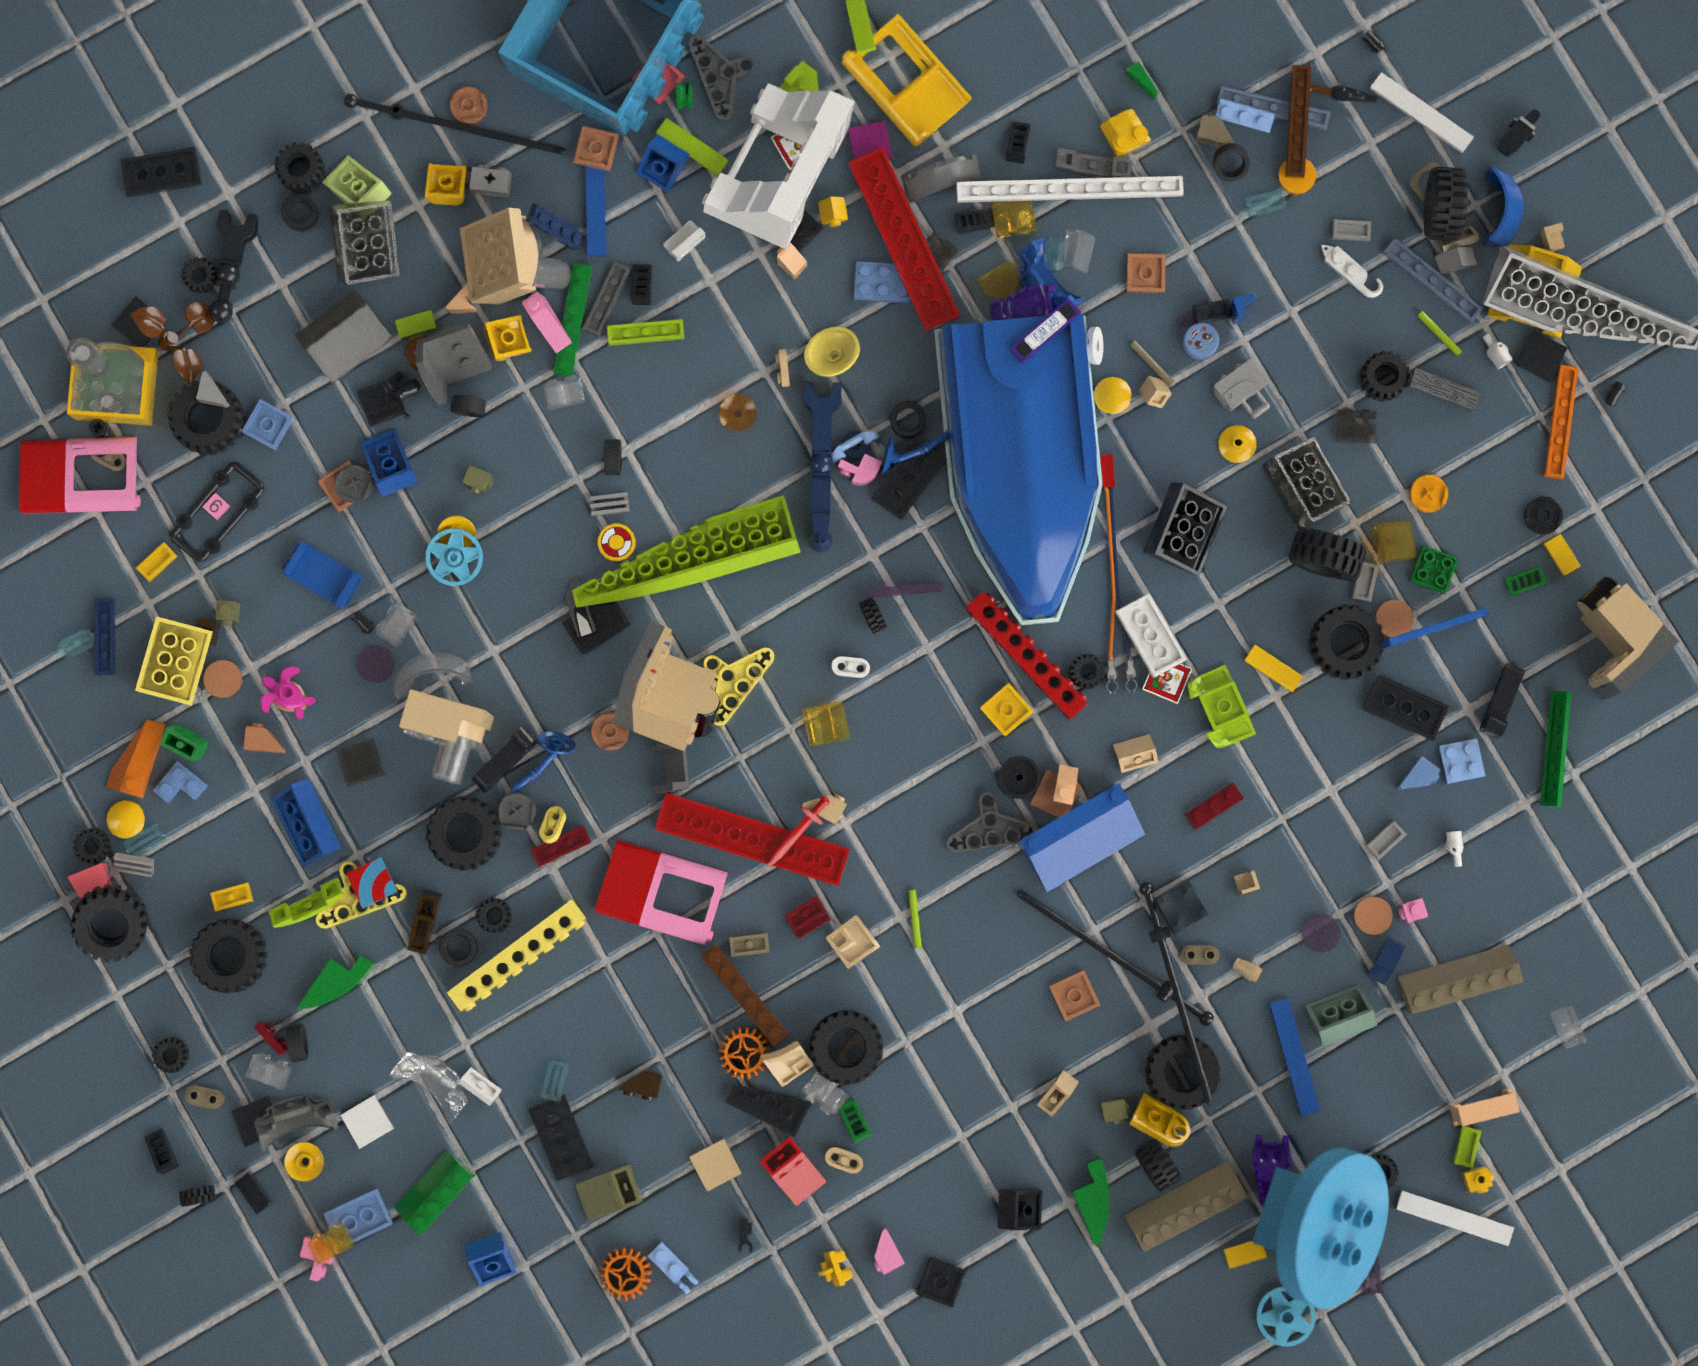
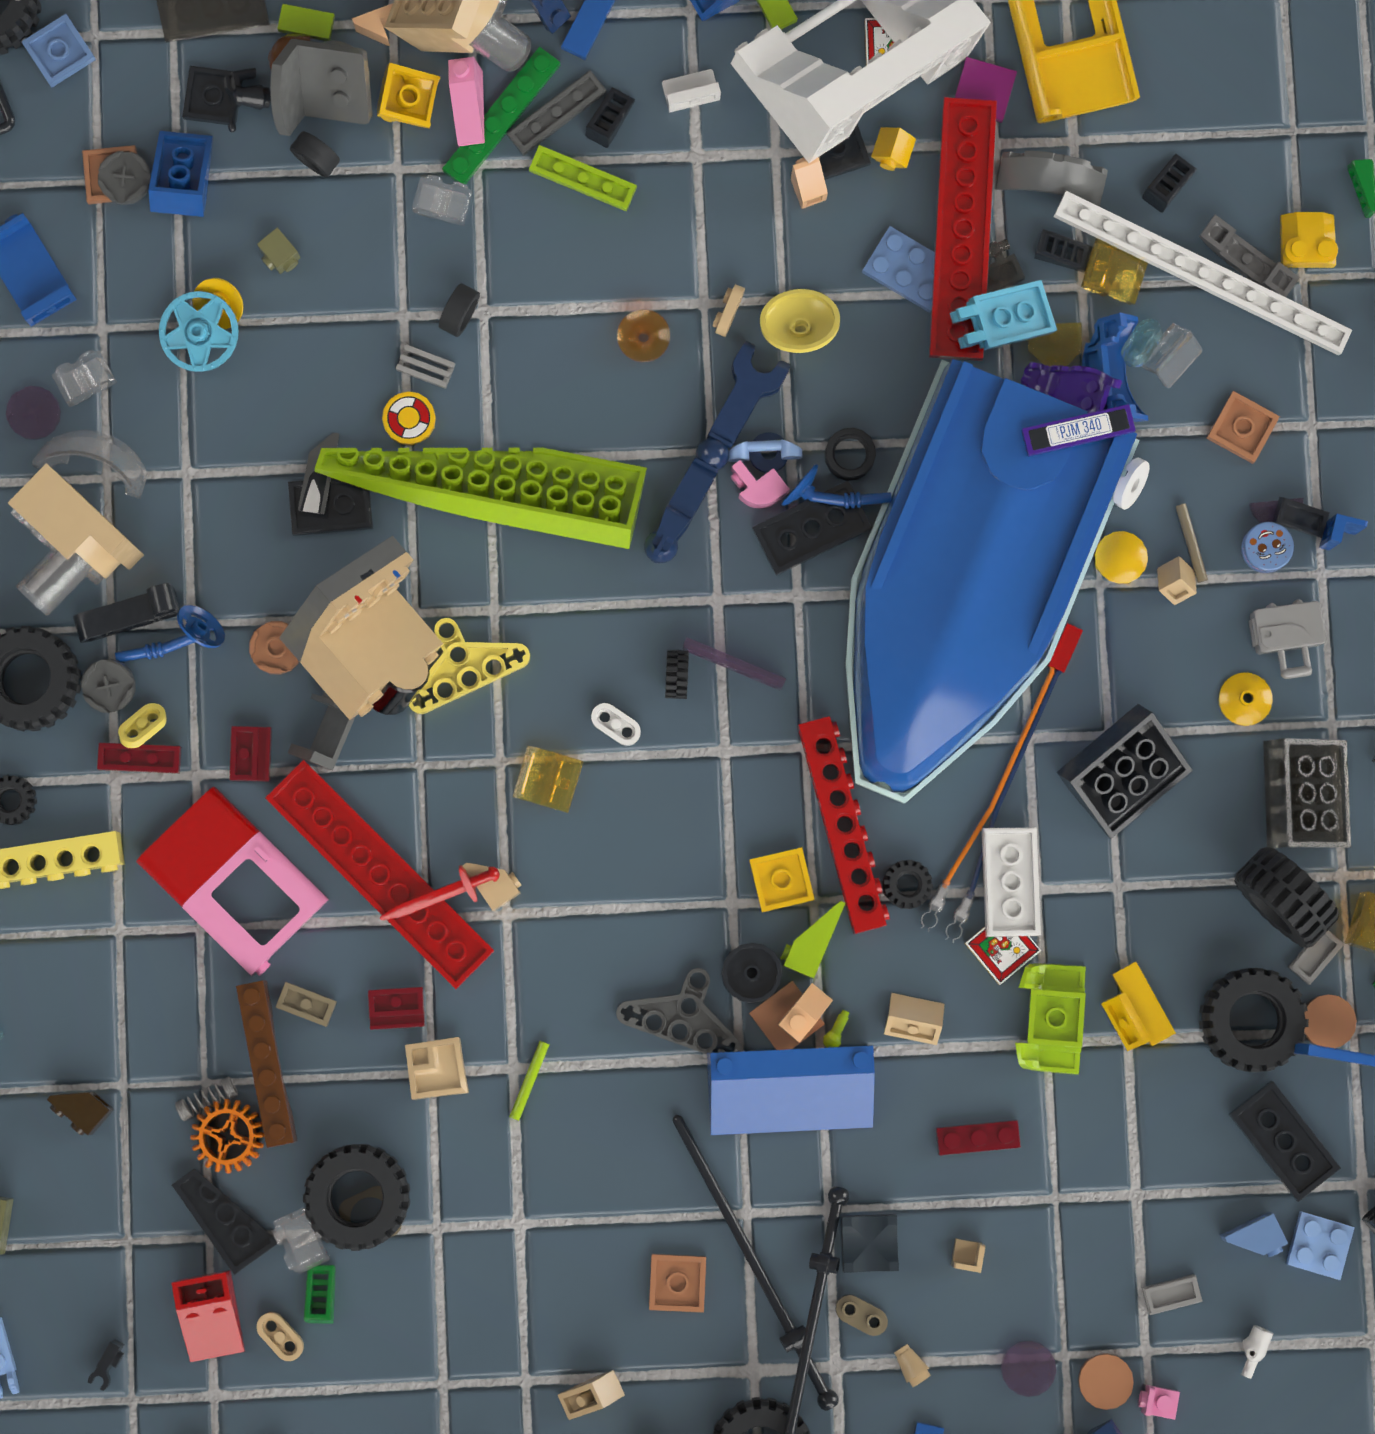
camera: 20 degrees right, 0 degrees up
(366, 625) = (44, 353): black pin -> none
(630, 806) = (250, 753): none -> dark red plate
(715, 1165) = (118, 1256): tan tile -> none
(728, 1023) = (182, 1107): none -> light grey piece
(787, 1063) = (273, 1177): tan plate -> none
(961, 281) = (1006, 316): none -> medium azure tile
(1046, 743) = (809, 948): none -> lime slope
(1090, 791) = (833, 1037): none -> lime piece
(1268, 685) = (1126, 1021): none -> yellow plate

